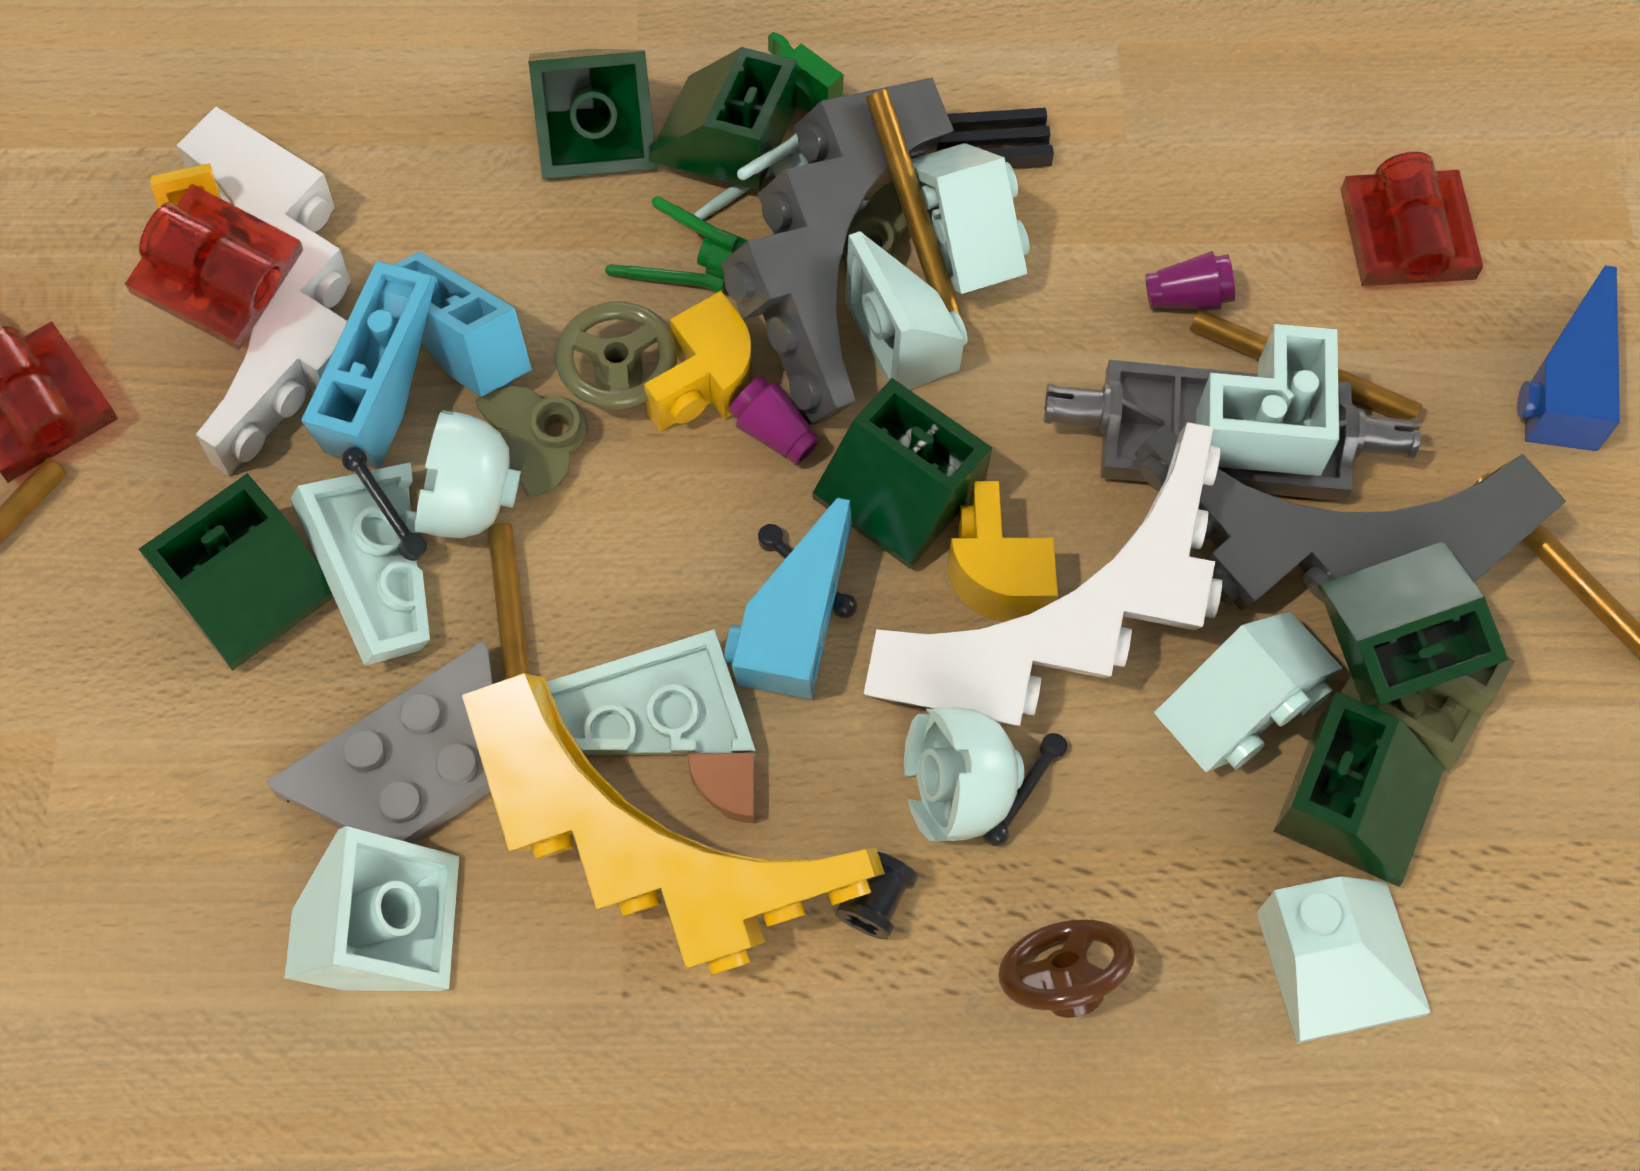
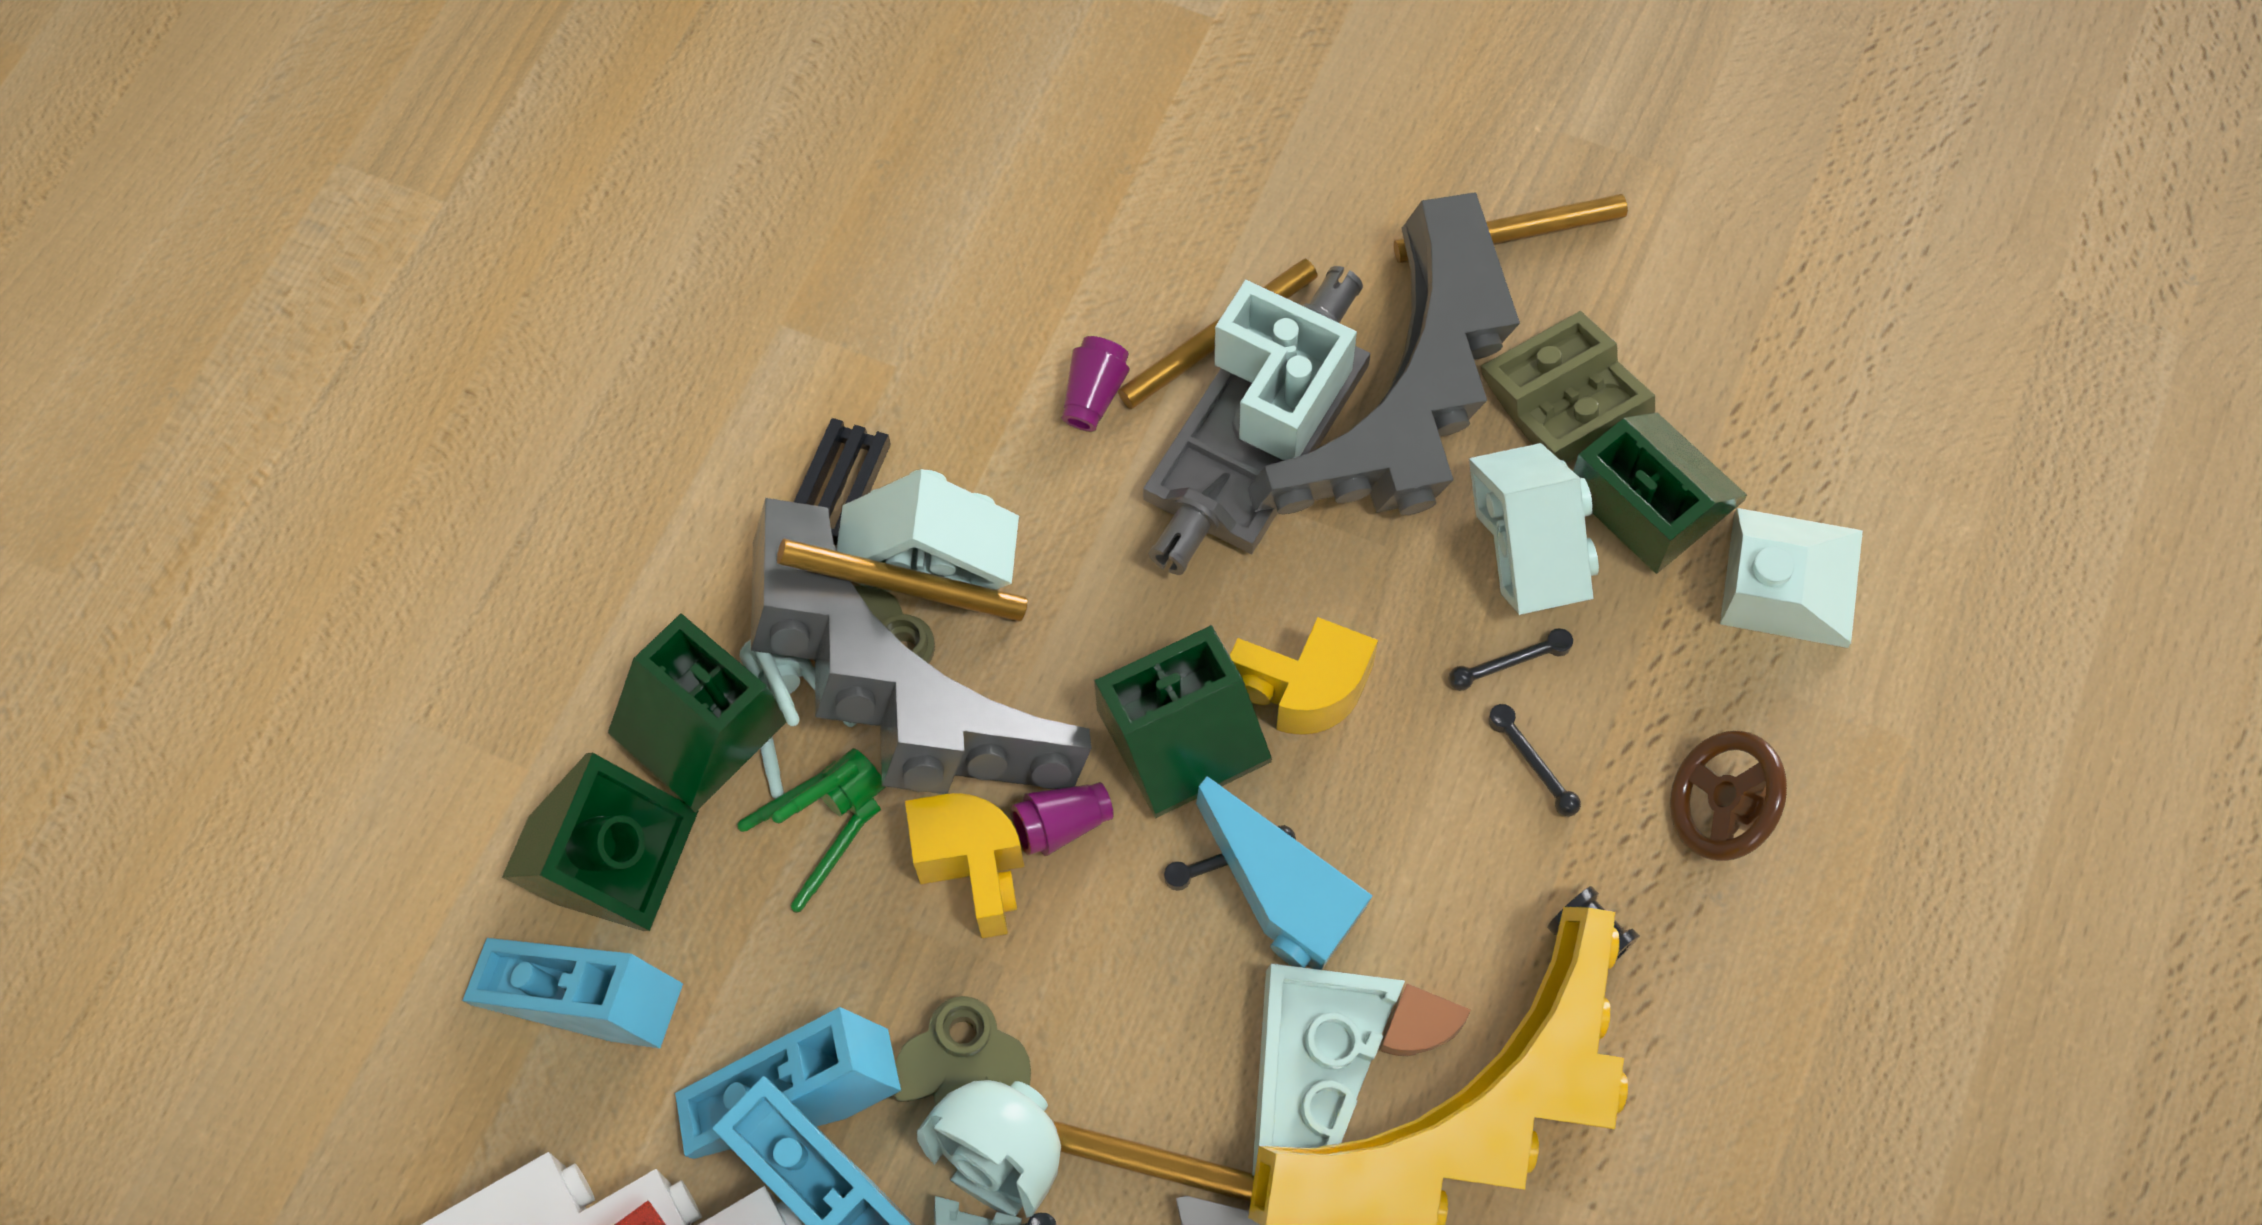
camera: 60 degrees left, 0 degrees up
(465, 148) = (575, 990): none -> medium azure slope
(620, 381) = (921, 959): olive piece -> none
(814, 76) = (695, 602): green plate -> none
(901, 317) = (1013, 650): light aqua slope -> none
(962, 771) = (1514, 806): light aqua cylinder -> none
(1080, 631) = (1402, 550): white arch -> none
(1154, 768) = (1558, 644): none -> black hinge
(1410, 223) = (1122, 178): clear red plate -> none
(1411, 624) = (1543, 366): dark green slope -> none
(1576, 388) = (1336, 126): blue slope -> none

